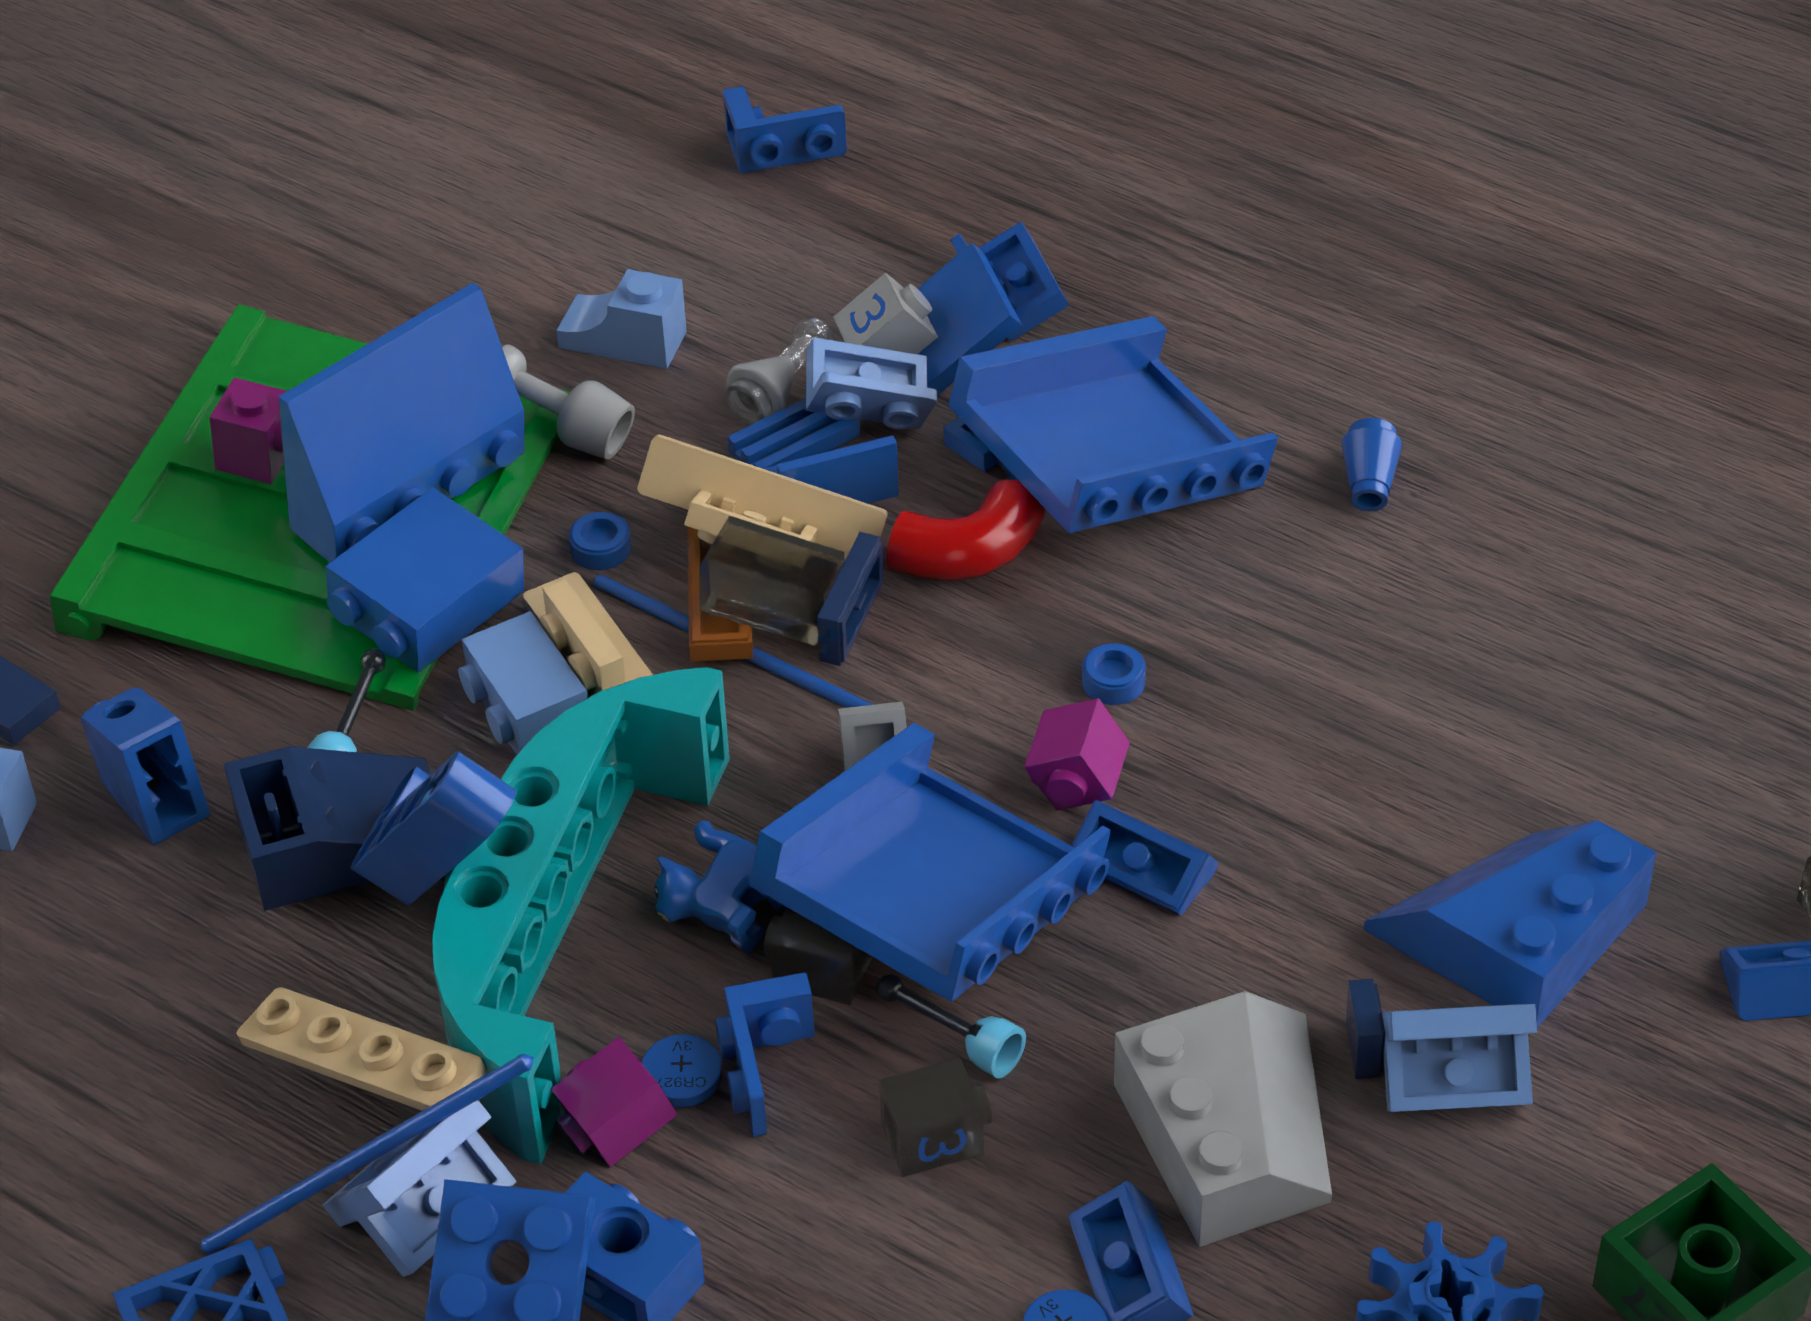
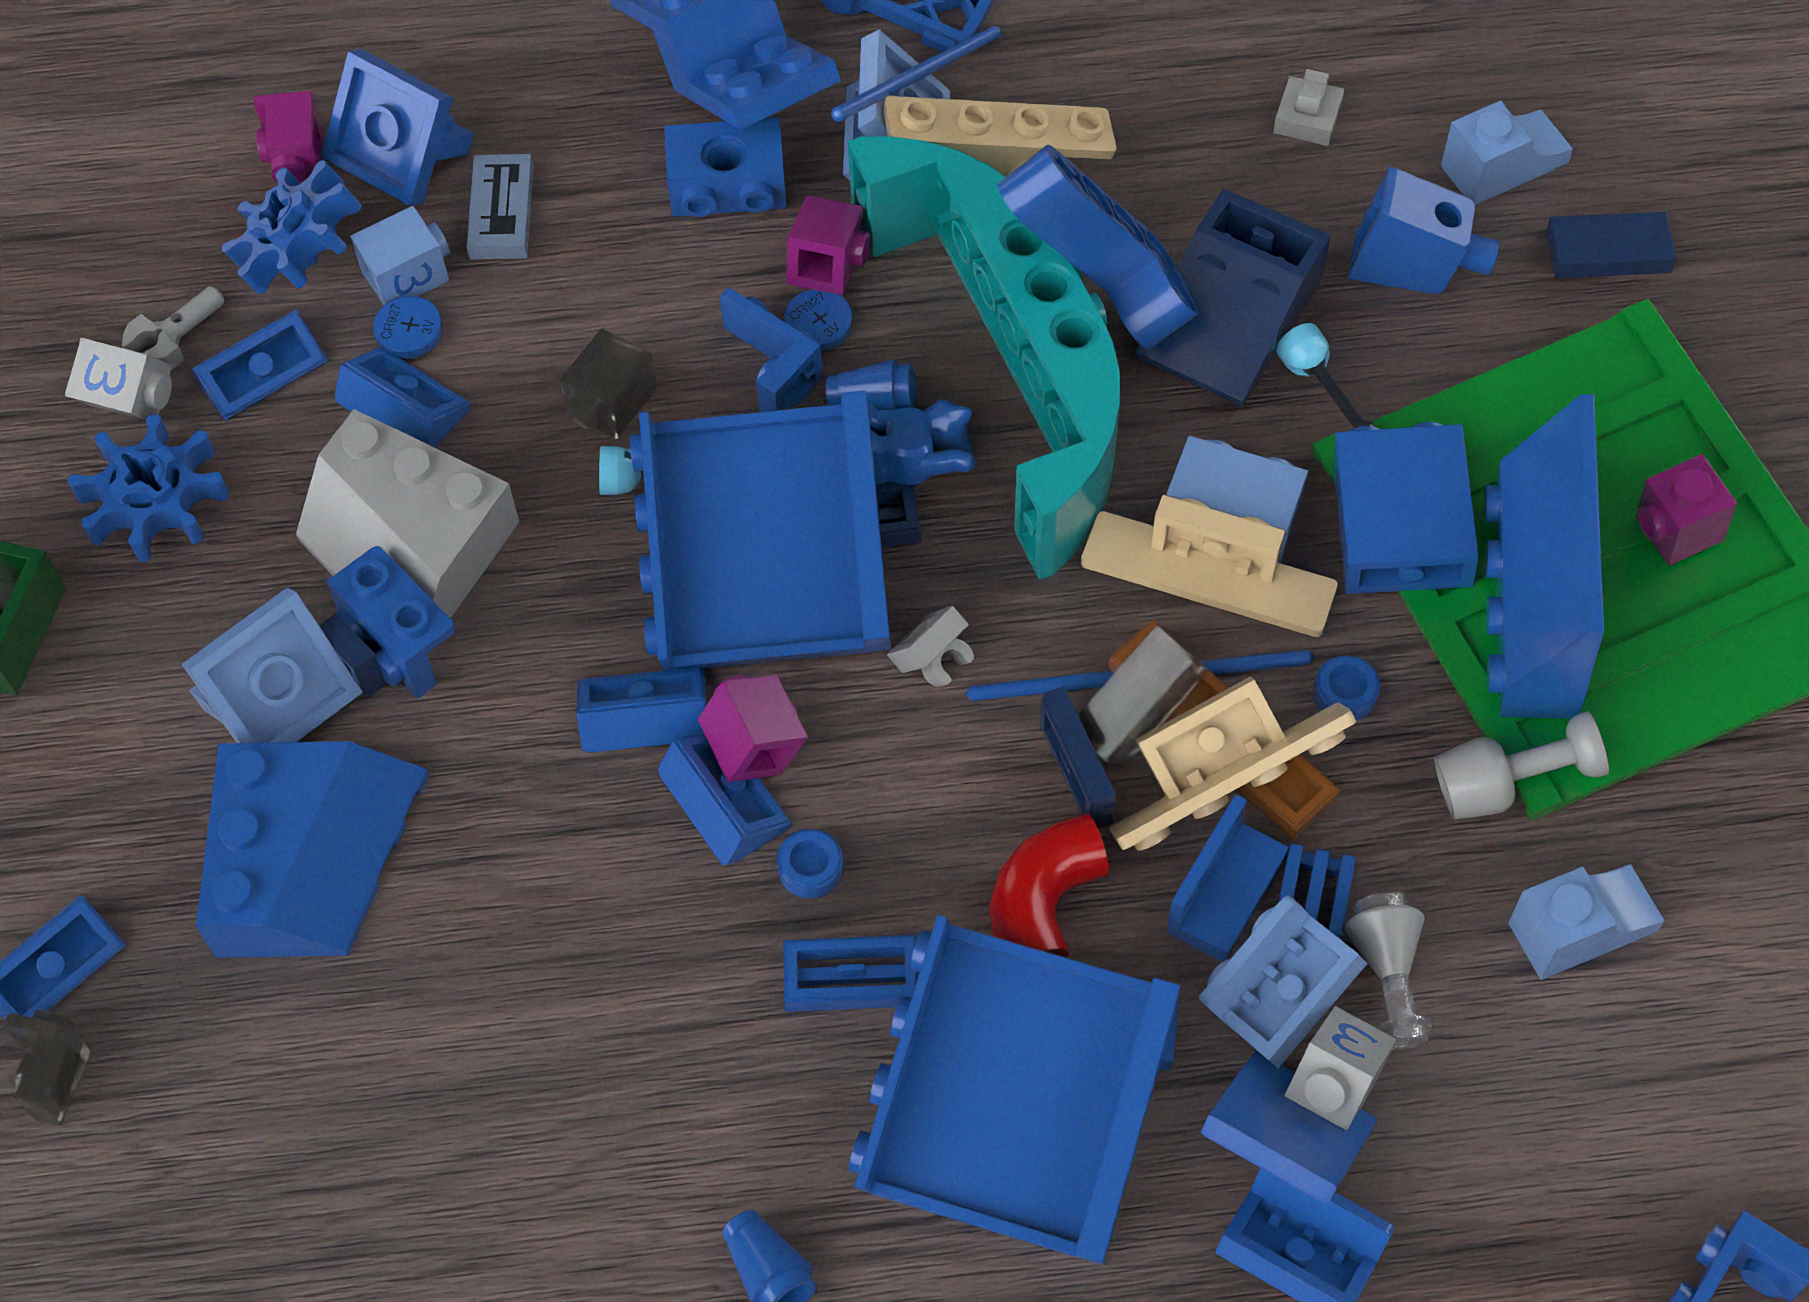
camera: 140 degrees right, 15 degrees up
(51, 958) = (1309, 108): none -> light grey tile
(701, 956) = (886, 385): none -> blue cone
(1144, 597) = (847, 997): none -> blue tile
(1151, 758) = (728, 815): none -> blue slope
(1308, 1015) = (391, 618): none -> blue bracket

